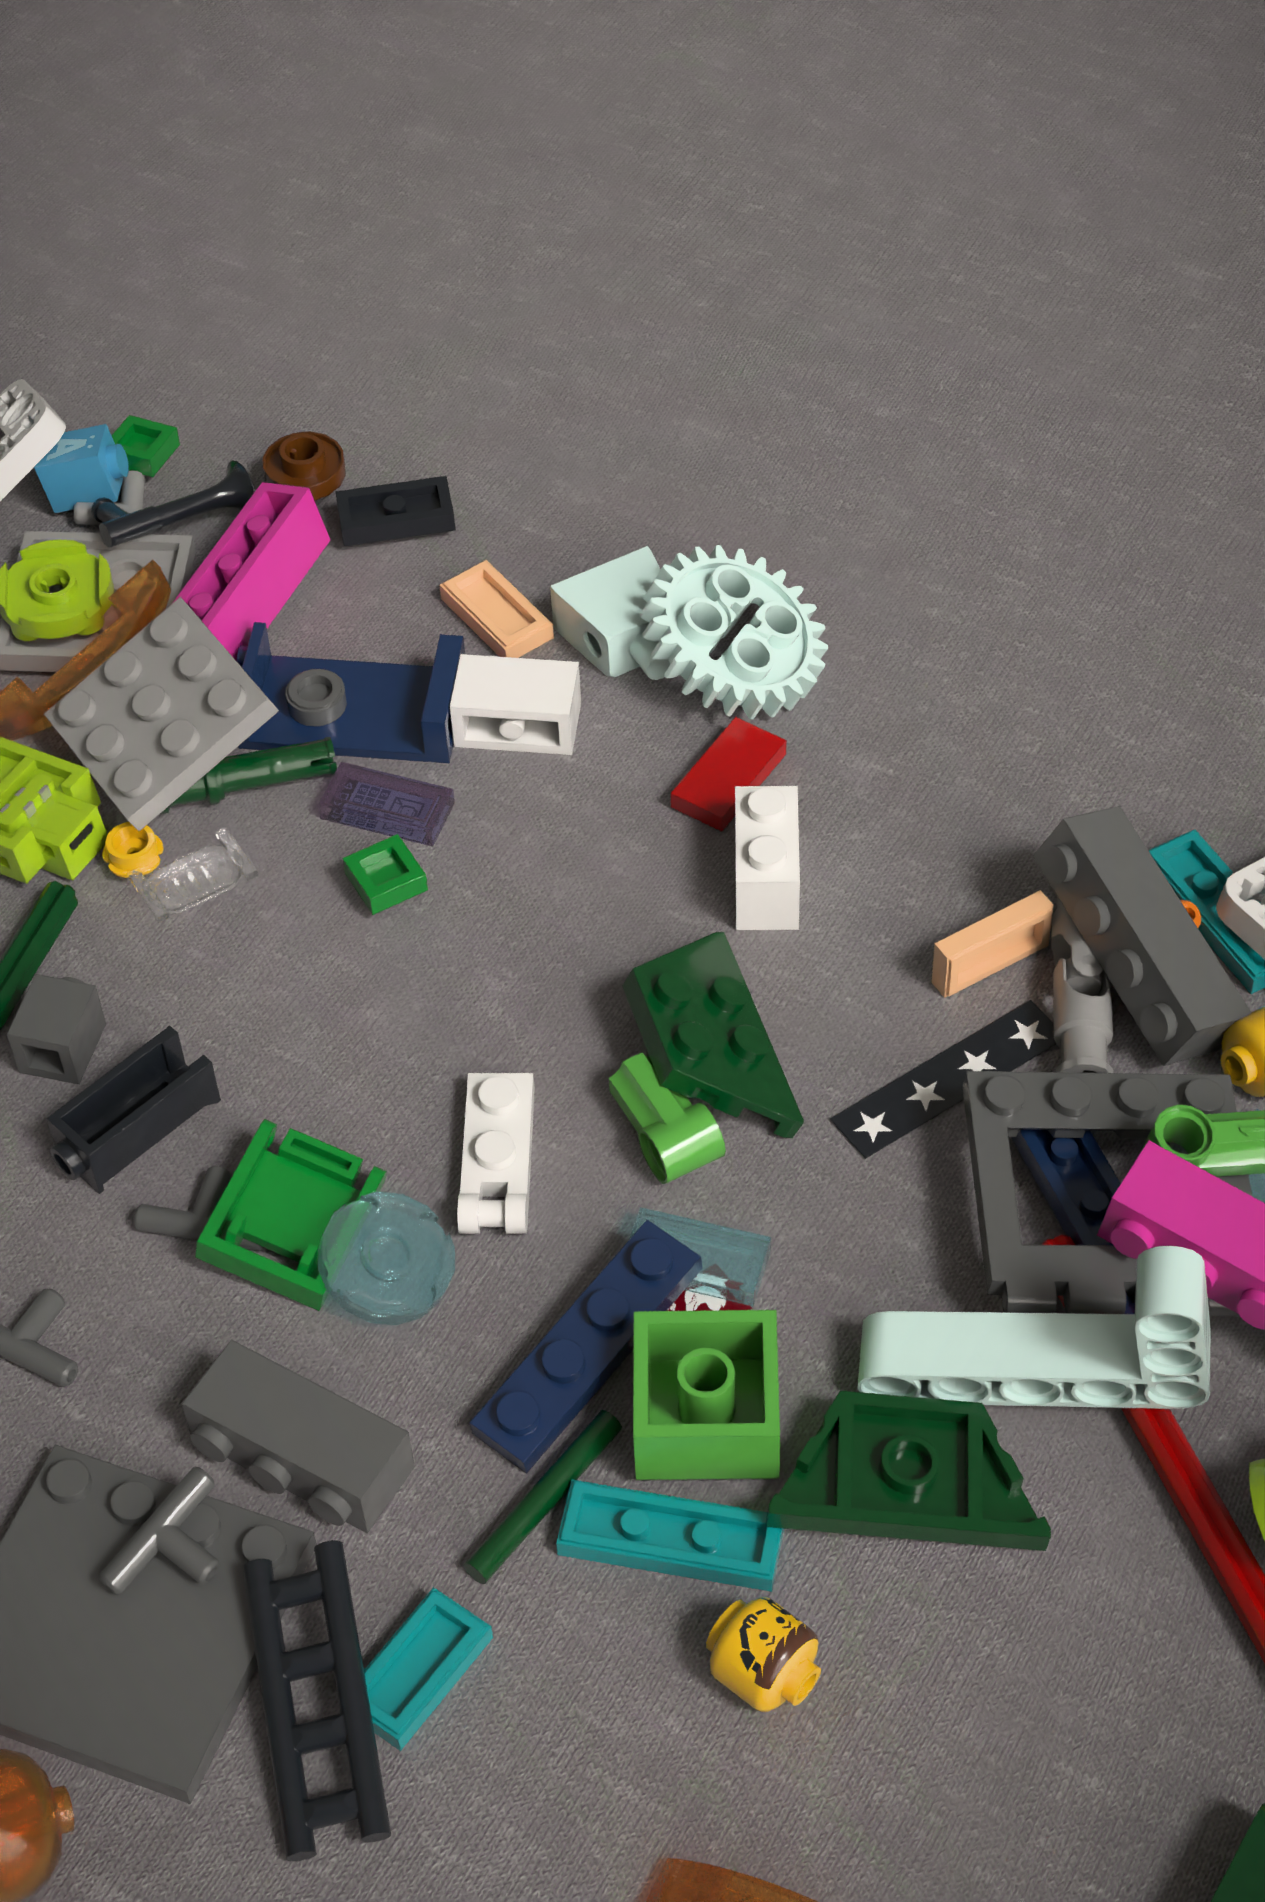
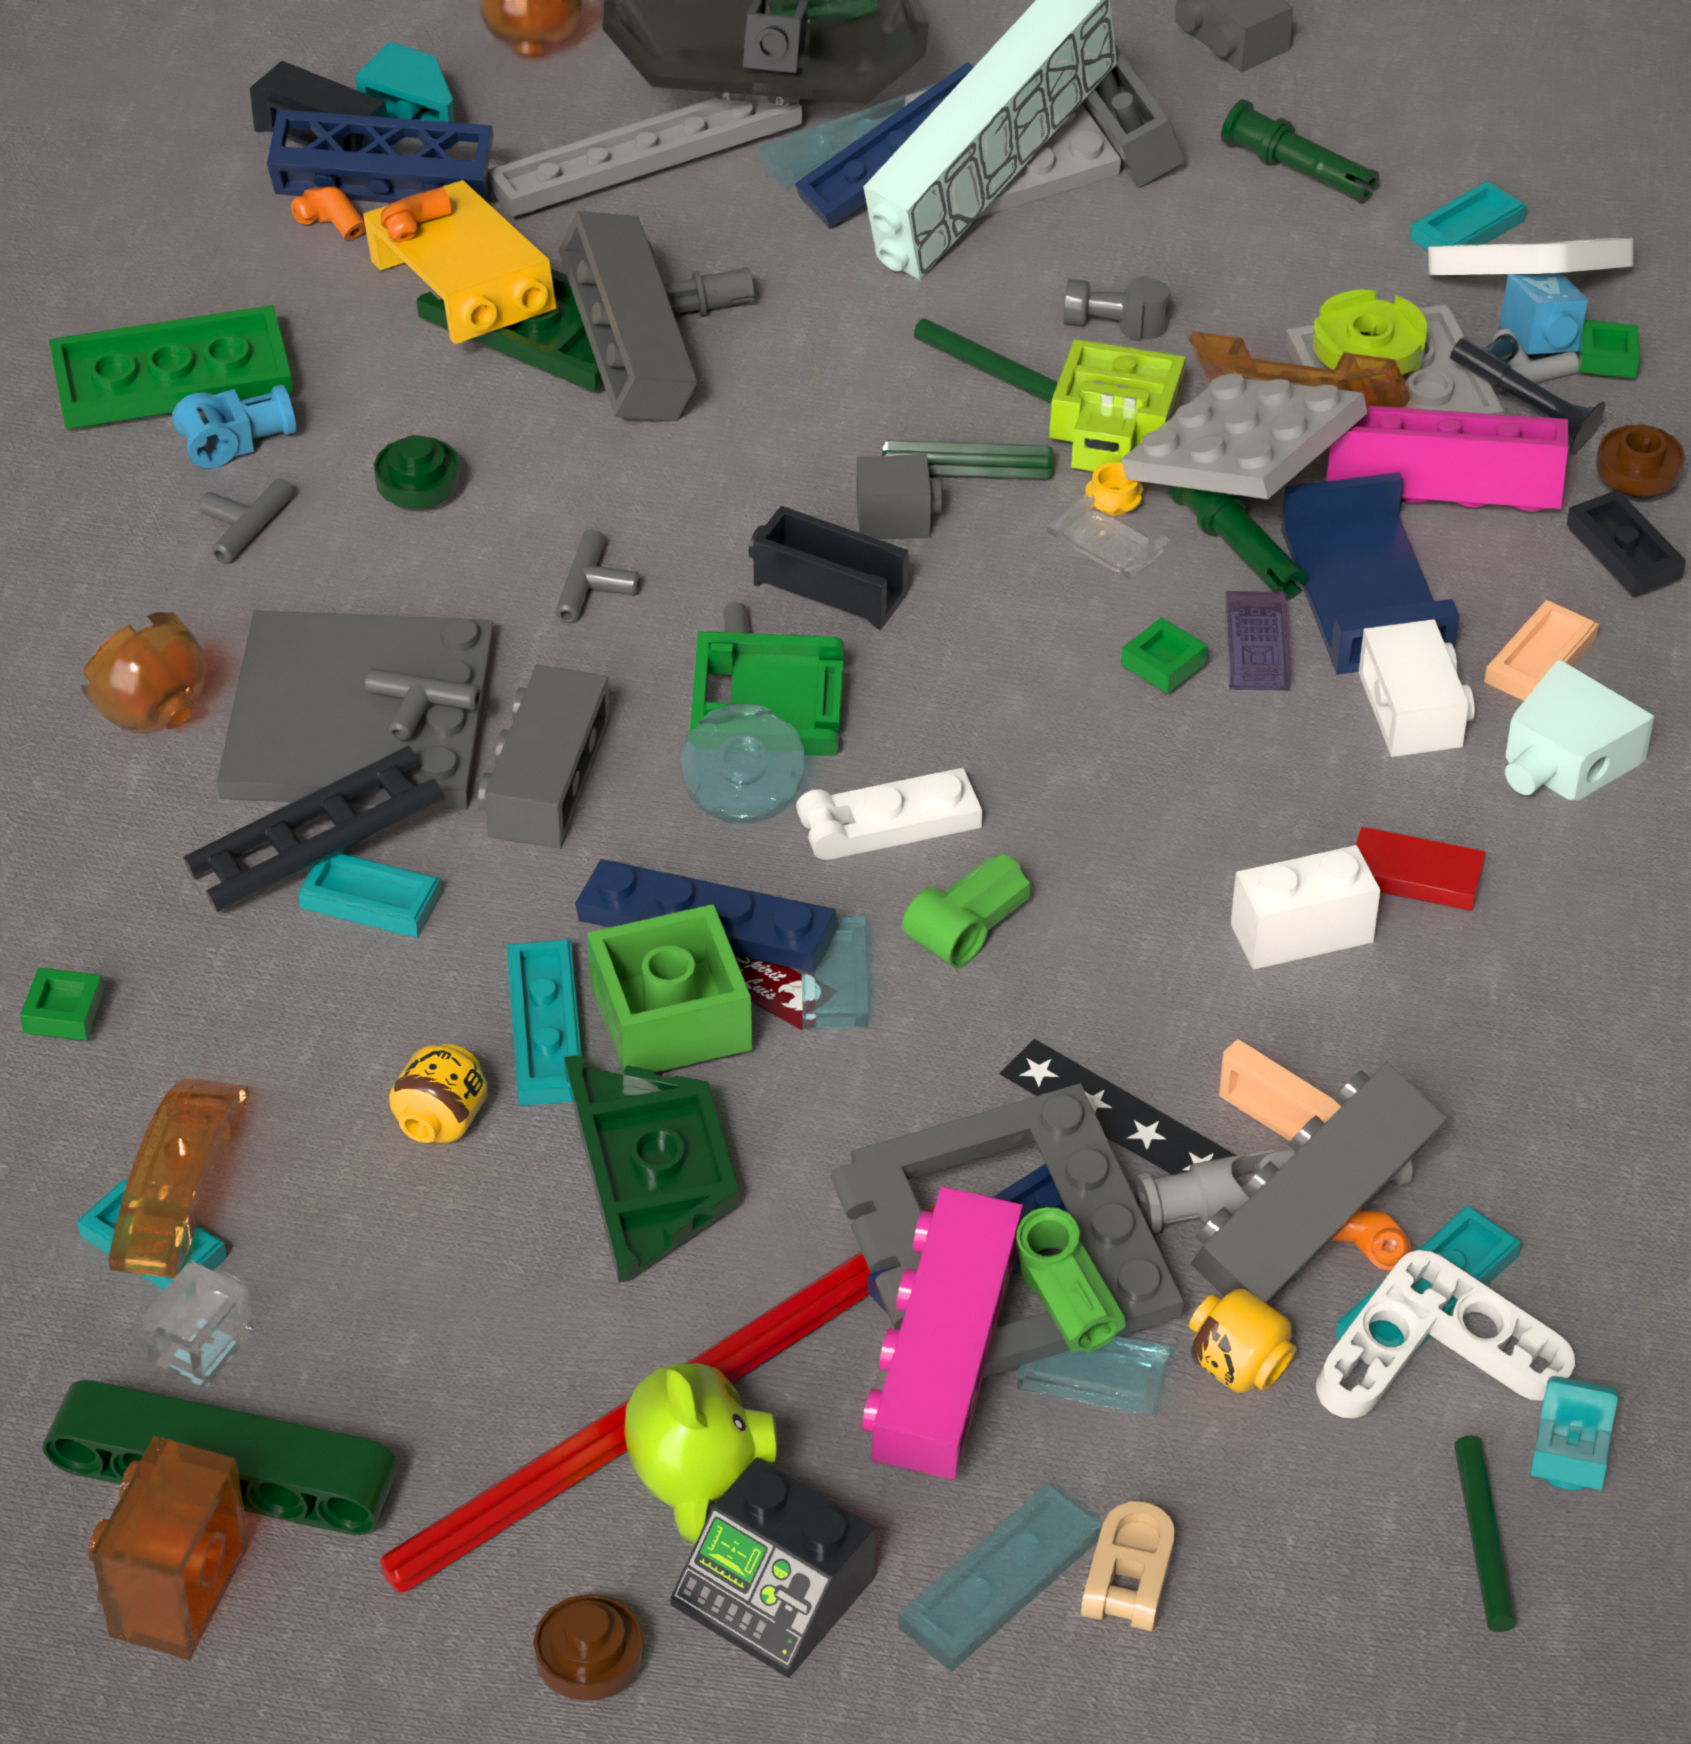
camera: 70 degrees right, 5 degrees down
(316, 697) = (1354, 553): dark grey tile -> none
(542, 1497) = (524, 921): dark green bar -> none
(698, 604) = (1571, 862): light aqua gear -> none
(709, 1033) = (1076, 911): dark green wing -> none
(1055, 1358) = (792, 1213): light aqua beam -> none

